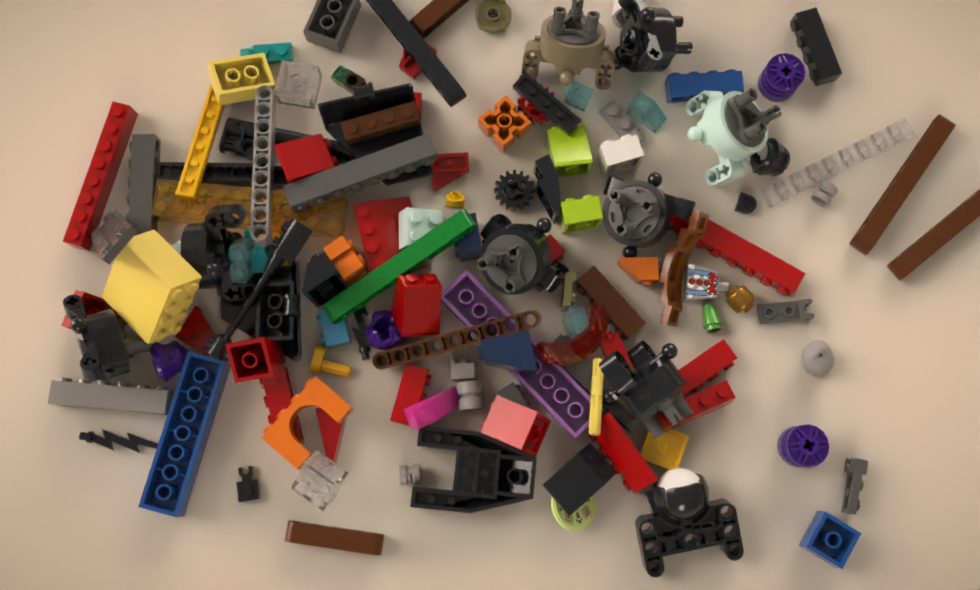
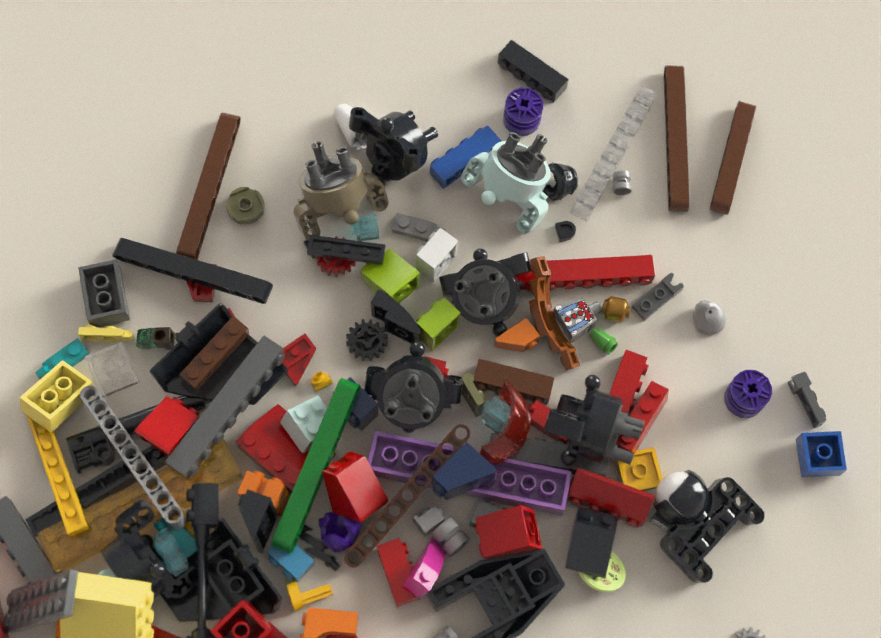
camera: 40 degrees left, 10 degrees down
(314, 53) = (106, 334): none -> light yellow hinge
(504, 114) = (310, 294): orange brick -> none
(596, 399) = (558, 463): light yellow axle -> none
(646, 112) = (432, 206): clear light blue slope -> none

